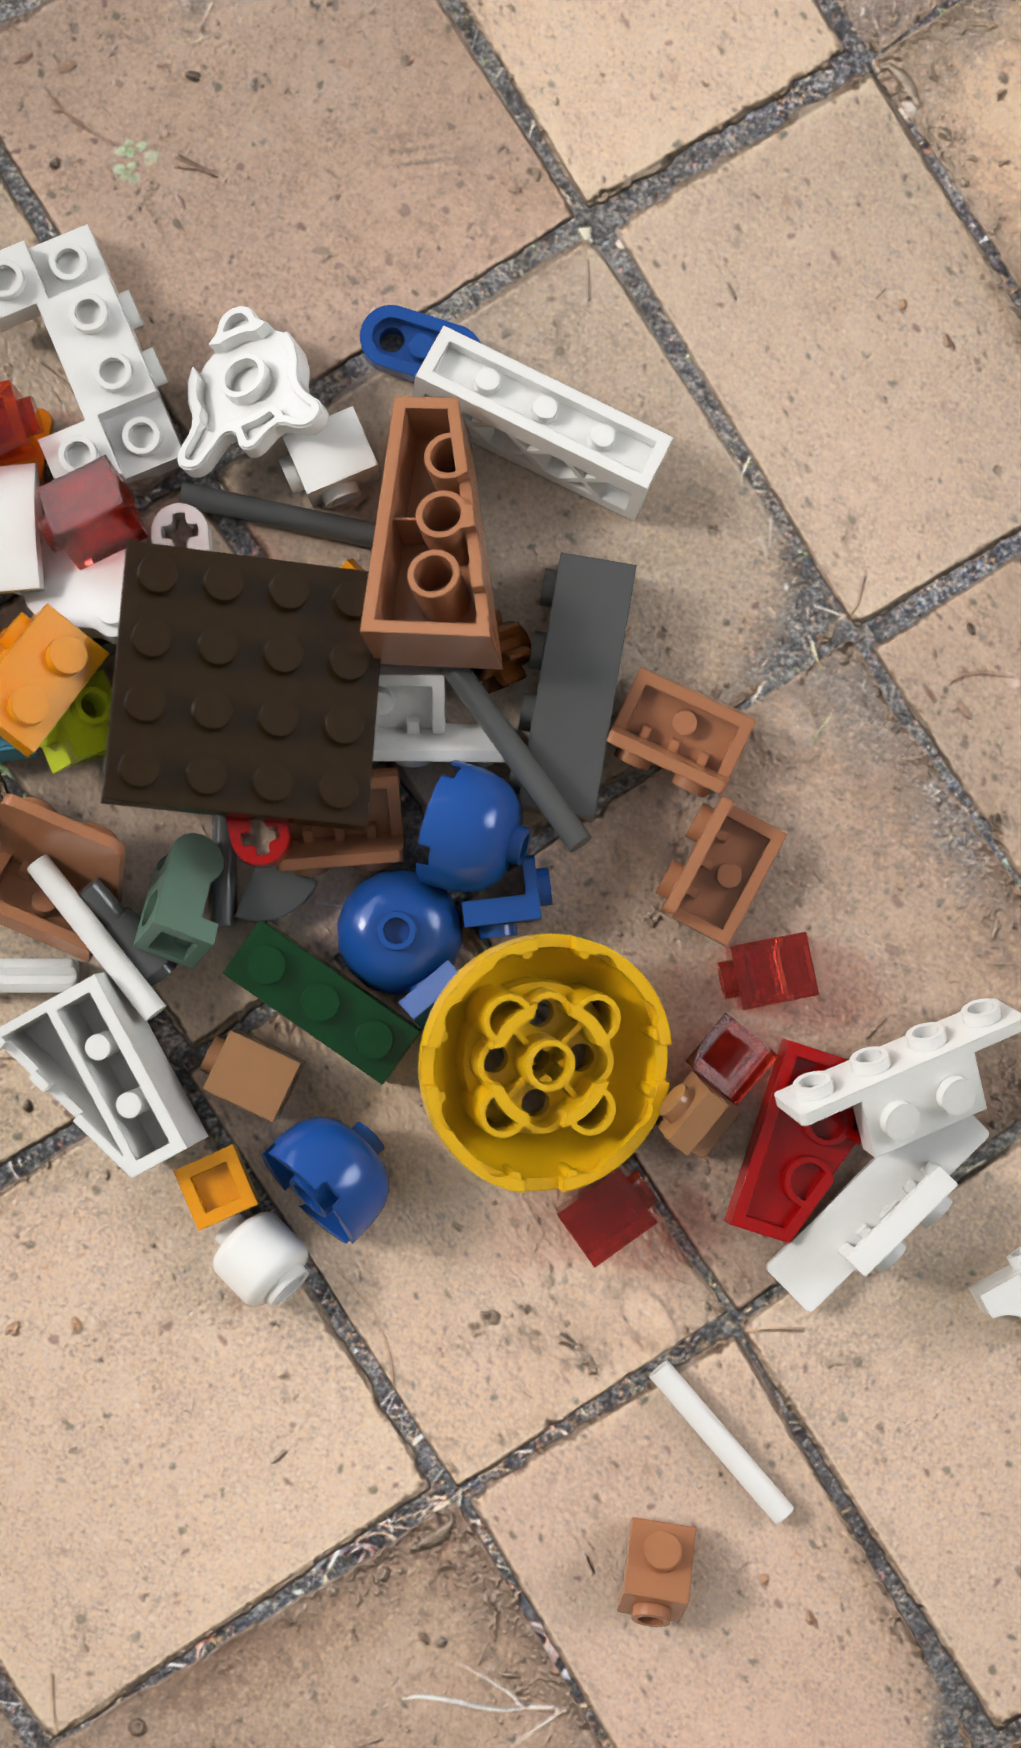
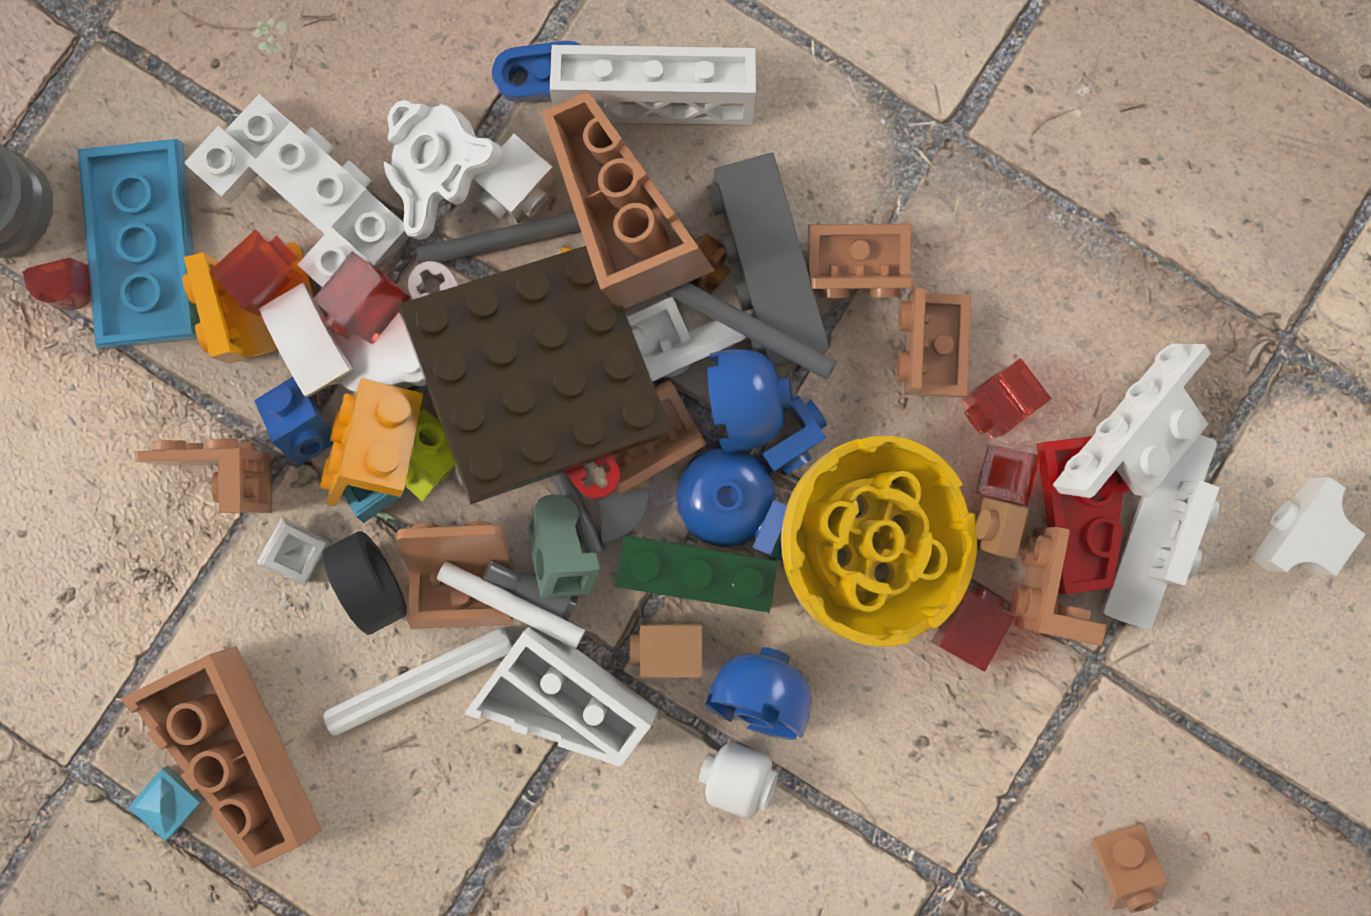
camera: 25 degrees left, 0 degrees up
(217, 1187) = (683, 743): light orange tile -> none
(687, 1214) = (1036, 599): none -> nougat bracket
(721, 1442) = (1130, 753): white bar -> none

